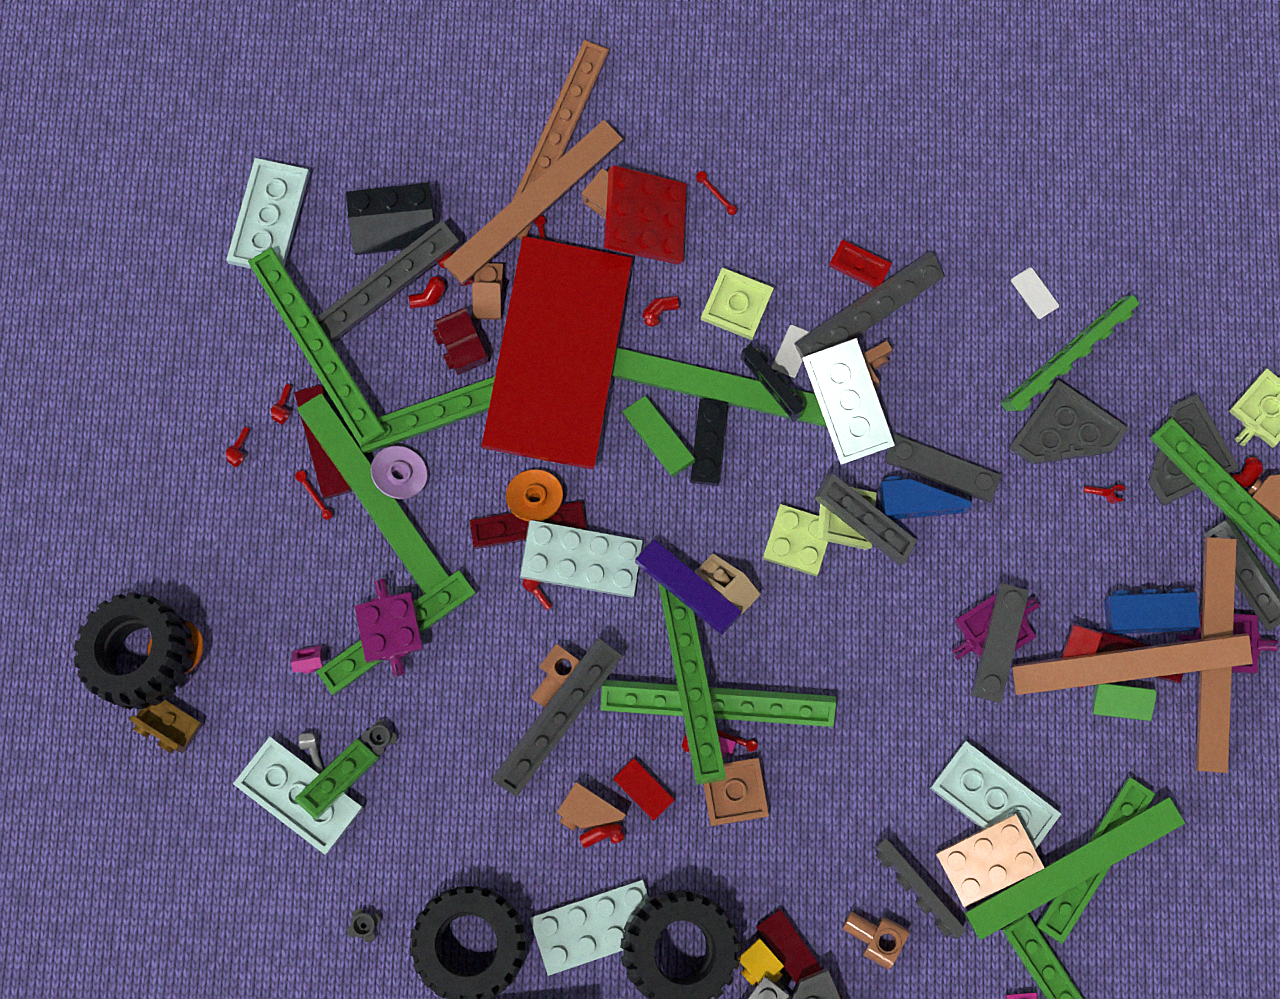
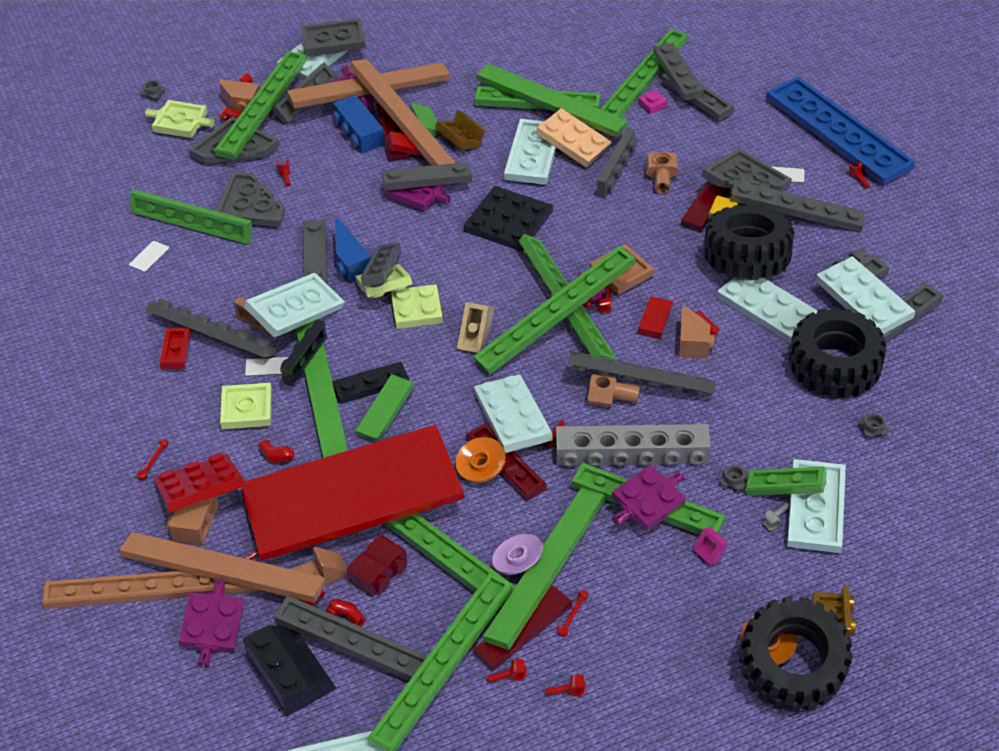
camera: 115 degrees left, 30 degrees down
(444, 725) = (633, 445): none -> light grey brick
(478, 173) = (211, 622): none -> magenta plate
(688, 587) = (494, 337): dark purple tile -> none
(892, 712) = (506, 217): none -> black plate
(1073, 729) = (462, 131): none -> pearl gold bracket

